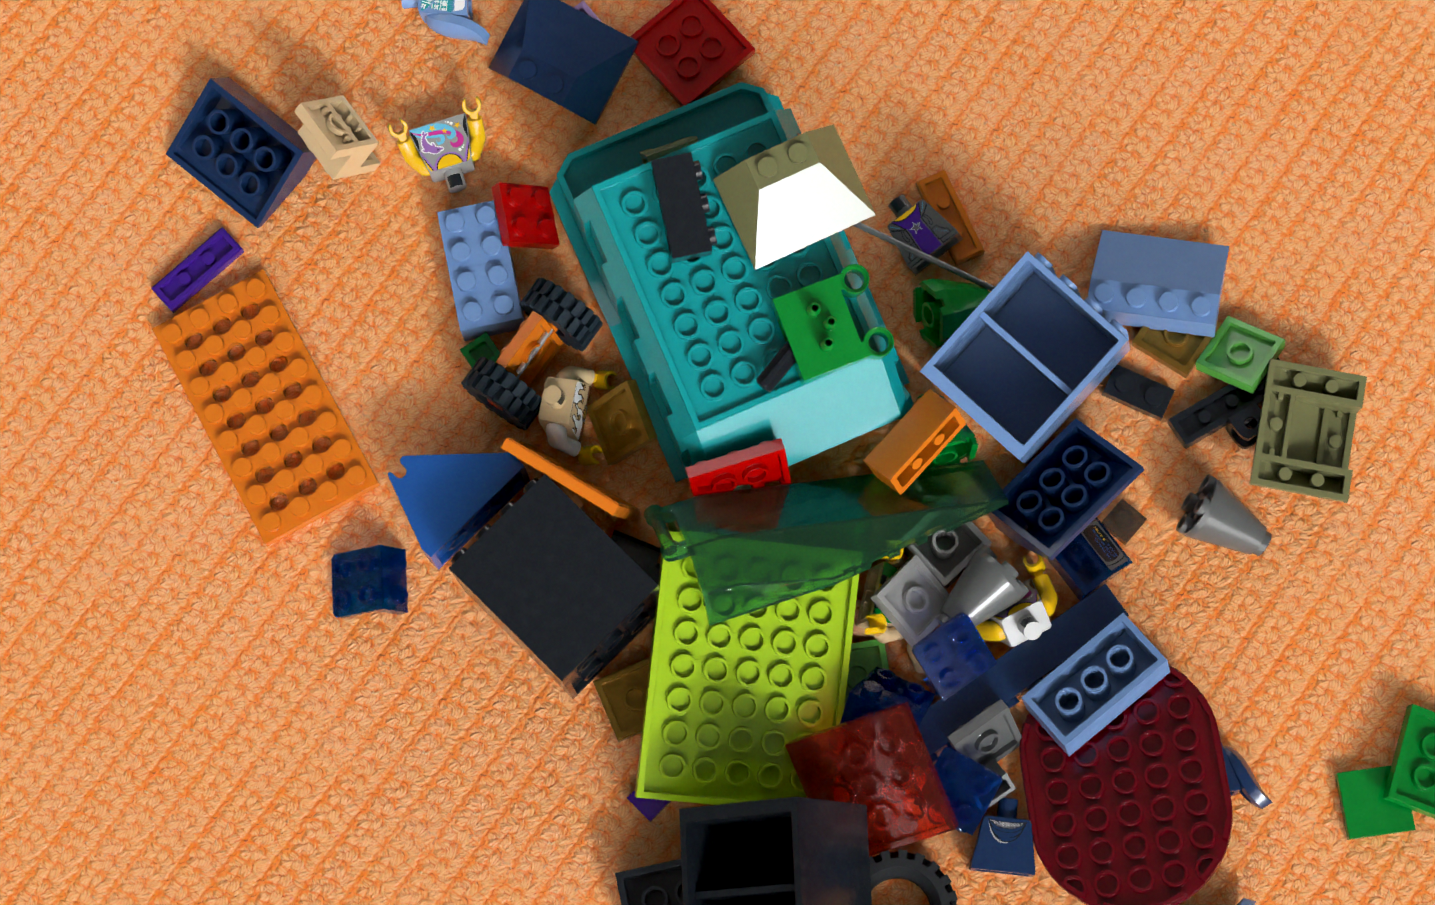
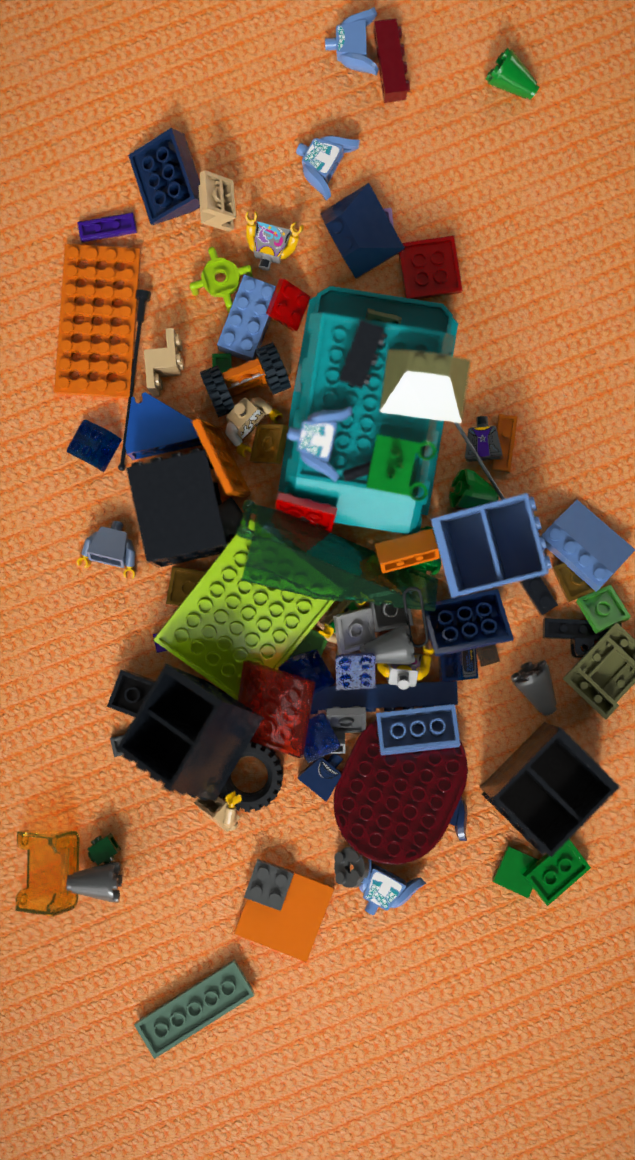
camera: 25 degrees right, 10 degrees up
(310, 332) = (143, 297): none -> black piece
(399, 400) = (163, 362): none -> tan bracket
(409, 255) = (224, 288): none -> lime plate
(486, 711) = (110, 548): none -> sand blue torso
(694, 357) = (317, 439): none -> medium blue torso
(993, 514) = (423, 615): none -> black piece
(1332, 645) = (548, 788): none -> black piece

